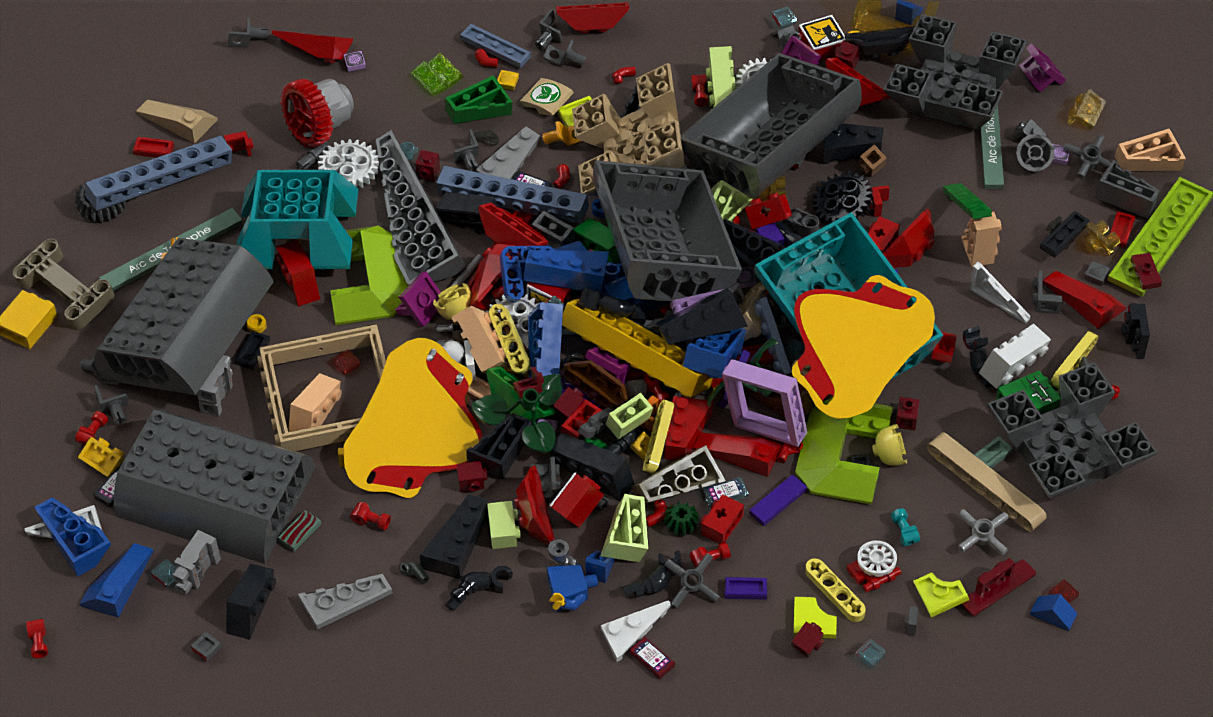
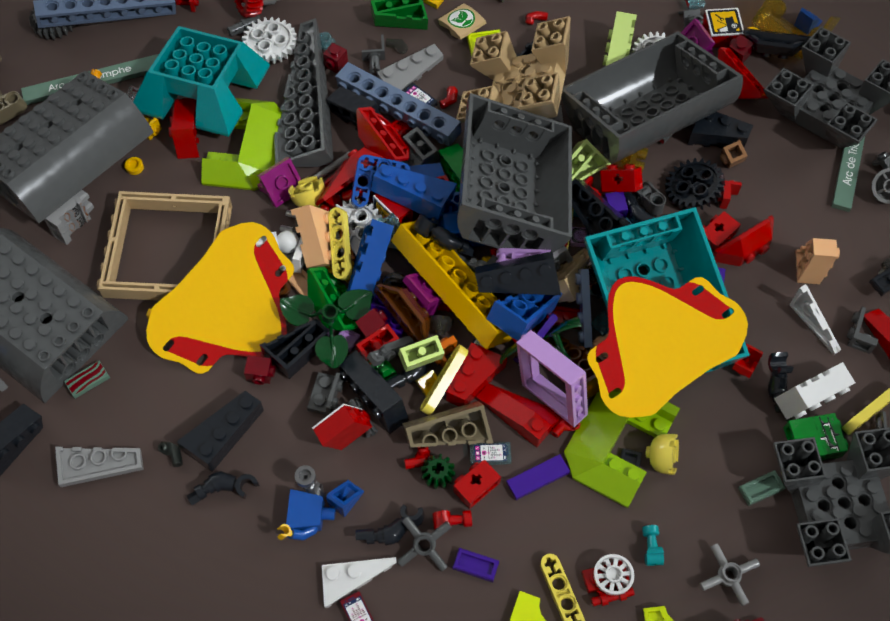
camera: 15 degrees right, 10 degrees up
(251, 349) = (124, 183): black tile -> none
(314, 403) = (146, 258): light nougat wedge -> none
(346, 362) = (195, 223): clear red tile -> none
(362, 514) = (148, 380): red leg -> none
(502, 524) = (268, 428): yellowish green brick -> none
(533, 383) = (338, 297): dark red bracket -> none
(533, 507) = (302, 416): red wedge -> none
(561, 133) = (462, 58): light orange bracket -> none
(627, 530) = (380, 473): yellowish green wedge -> none
(655, 386) = (462, 338): red leg -> none
(699, 84) = (599, 43): red leg -> none
(907, 413) = (691, 420): dark red brick -> none
(967, 201) = (813, 220): green tile -> none
(986, 482) = (749, 519): tan beam -> none

